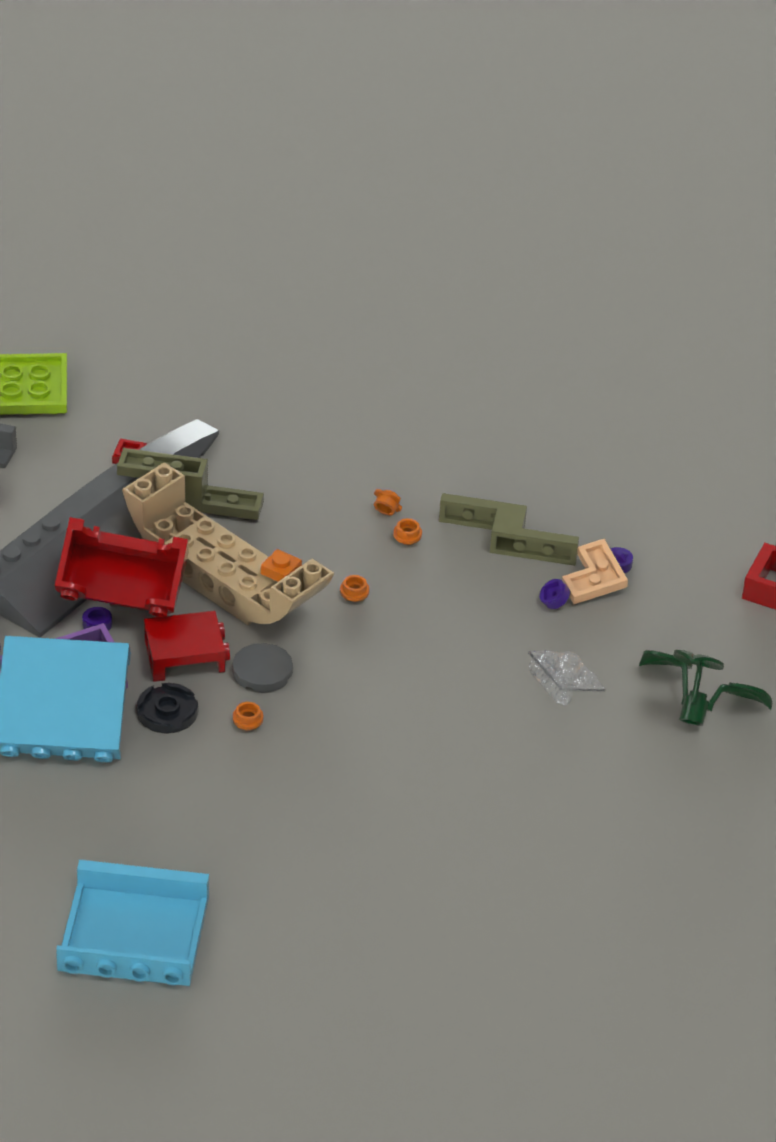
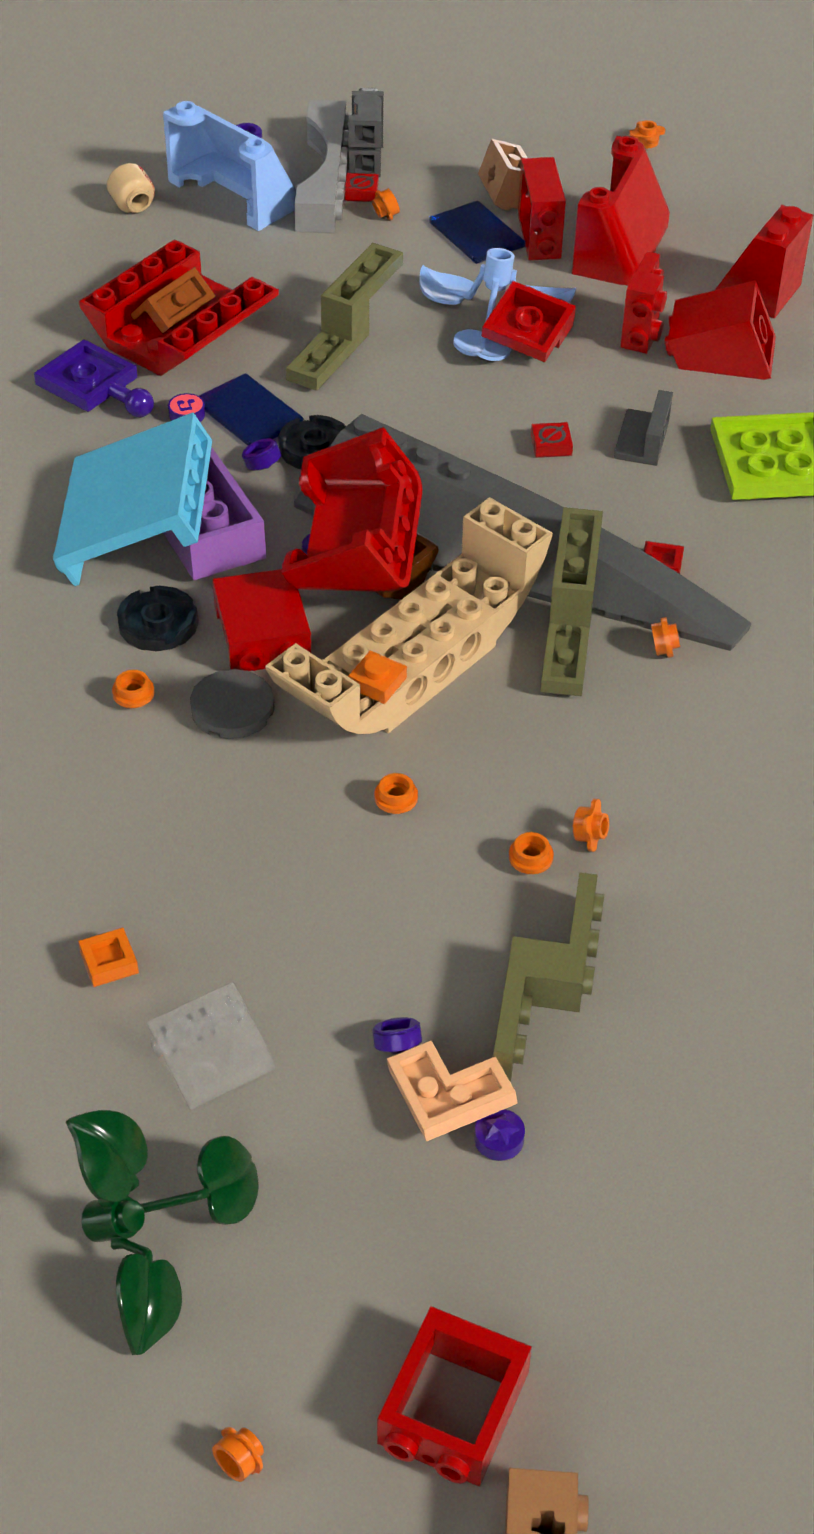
camera: 90 degrees right, 5 degrees up
(216, 454) = (665, 637): none -> orange plate
(497, 720) = (108, 957): none -> orange plate

